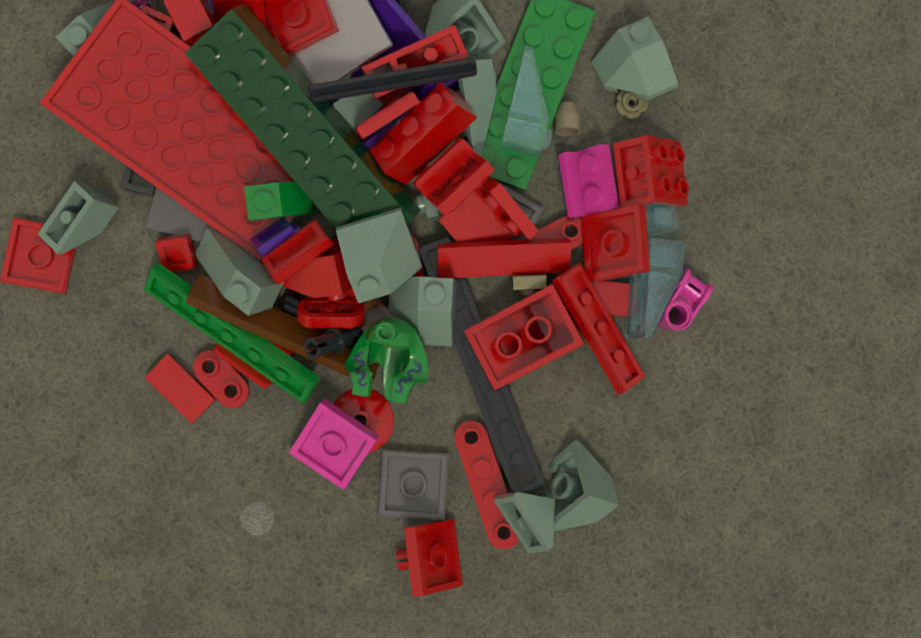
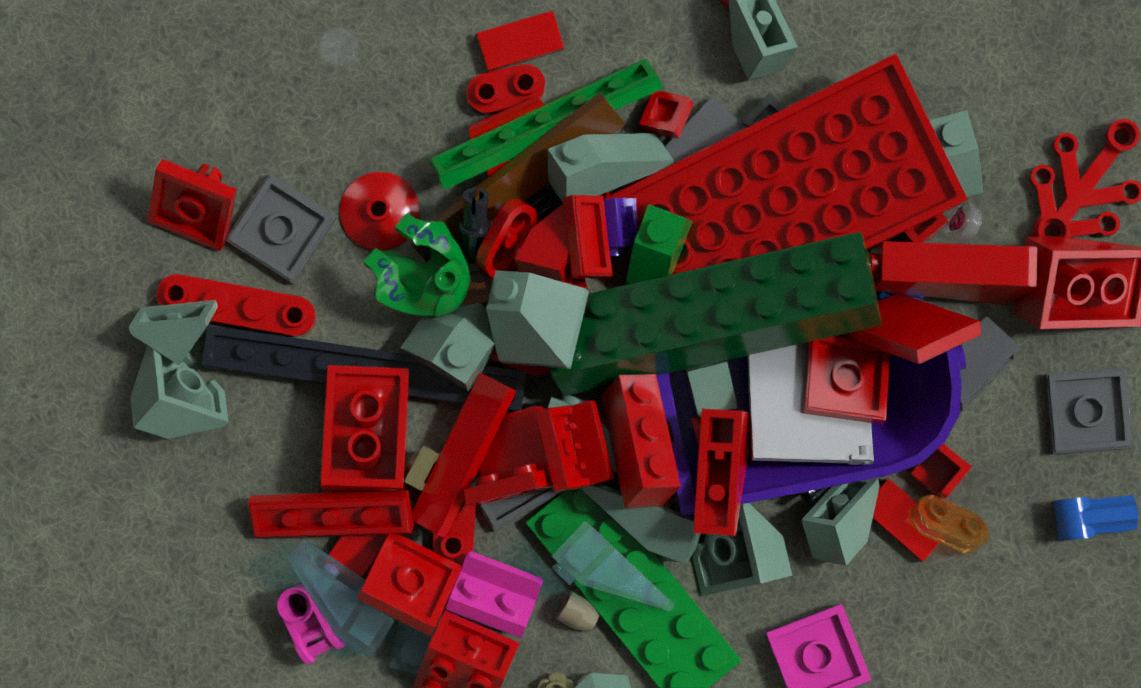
camera: 120 degrees right, 0 degrees up
(334, 444) = (368, 168): dark pink plate -> none
(386, 115) = (680, 410): red tile -> none
(392, 80) = (708, 435): black axle -> none

